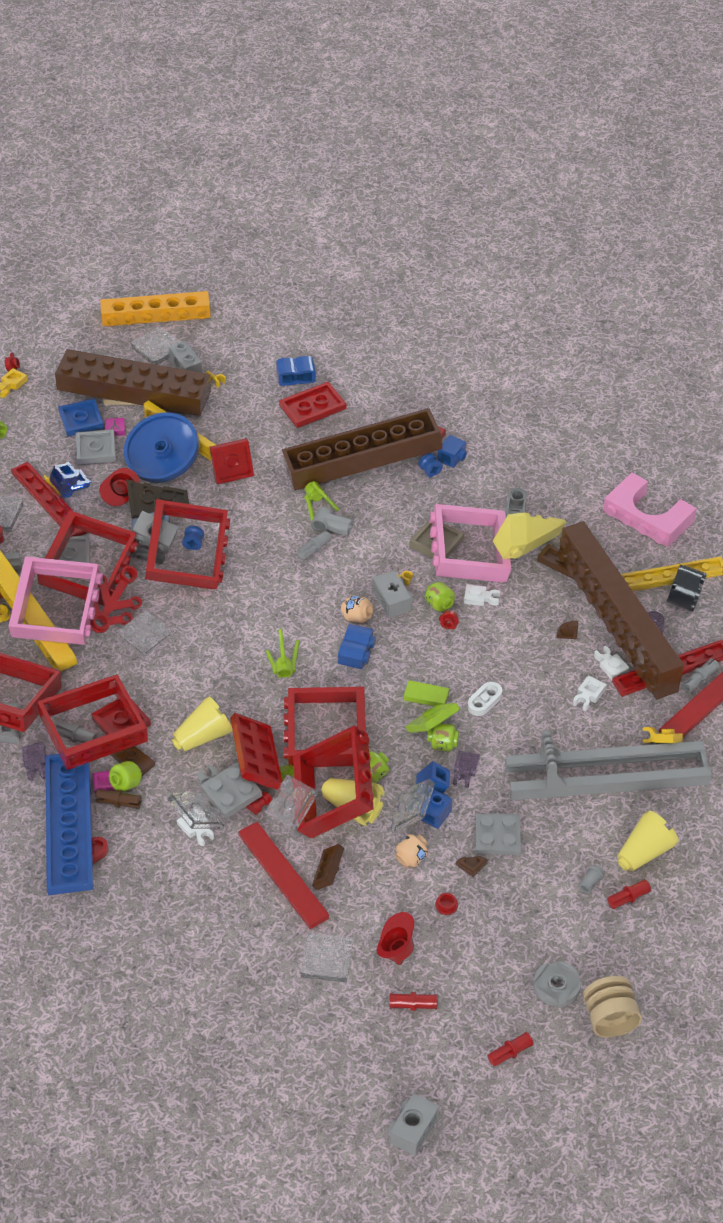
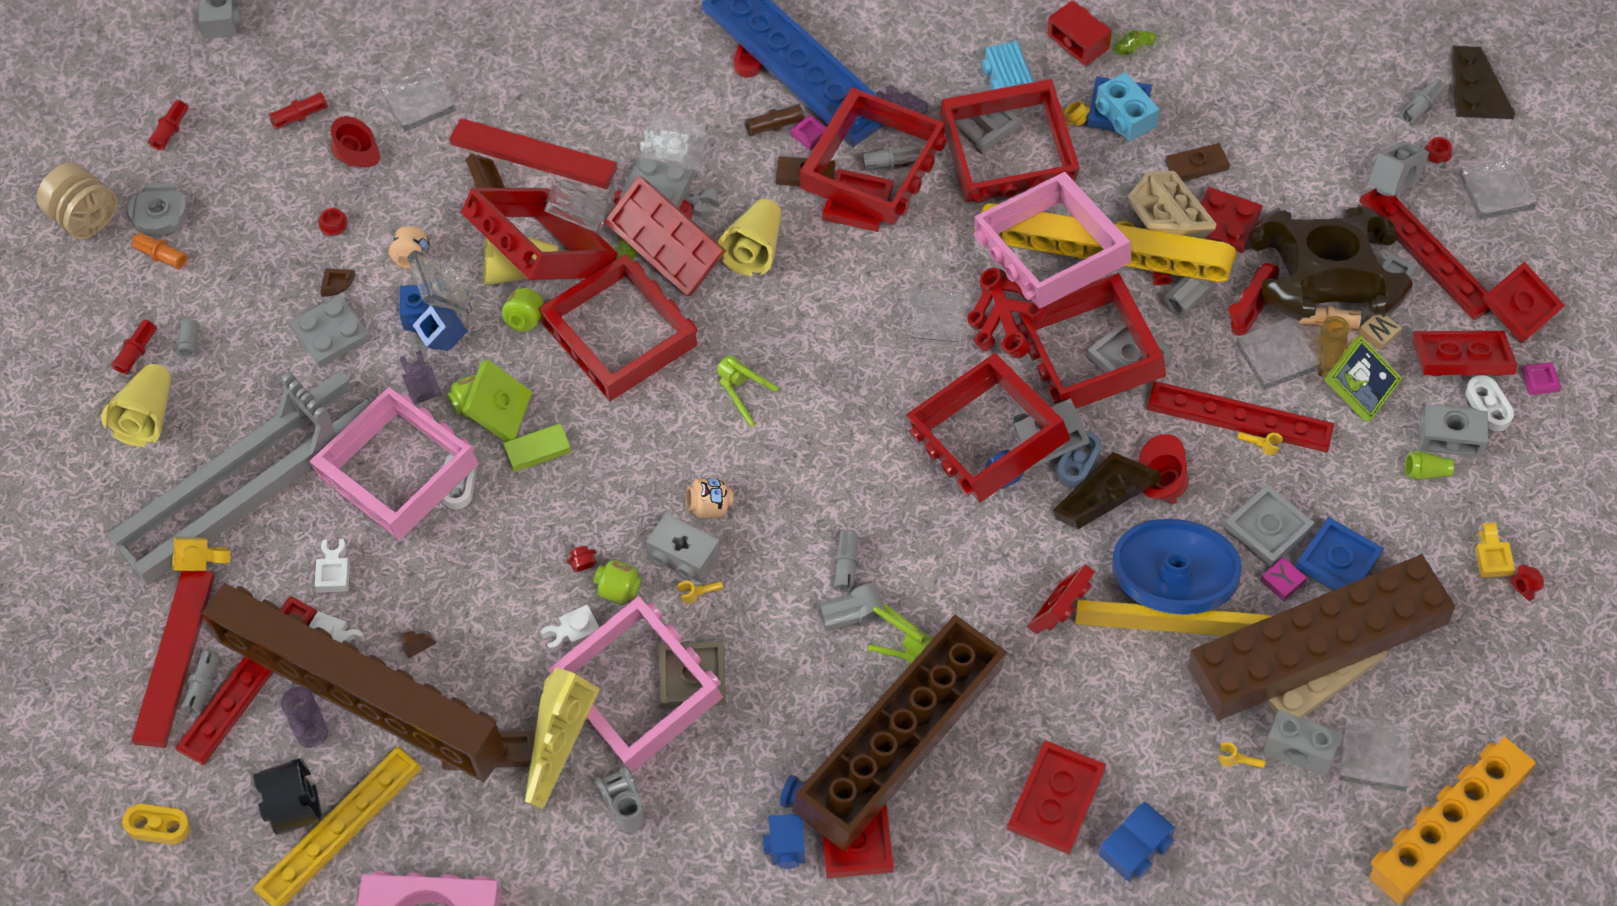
camera: 145 degrees right, 10 degrees up
(68, 479) = (1238, 439): clear blue brick -> none
(125, 776) = (786, 136): lime head -> none
(356, 646) = (669, 448): blue brick -> none
(512, 685) = (362, 429): none -> bright pink window
(574, 953) = (159, 250): none -> orange axle

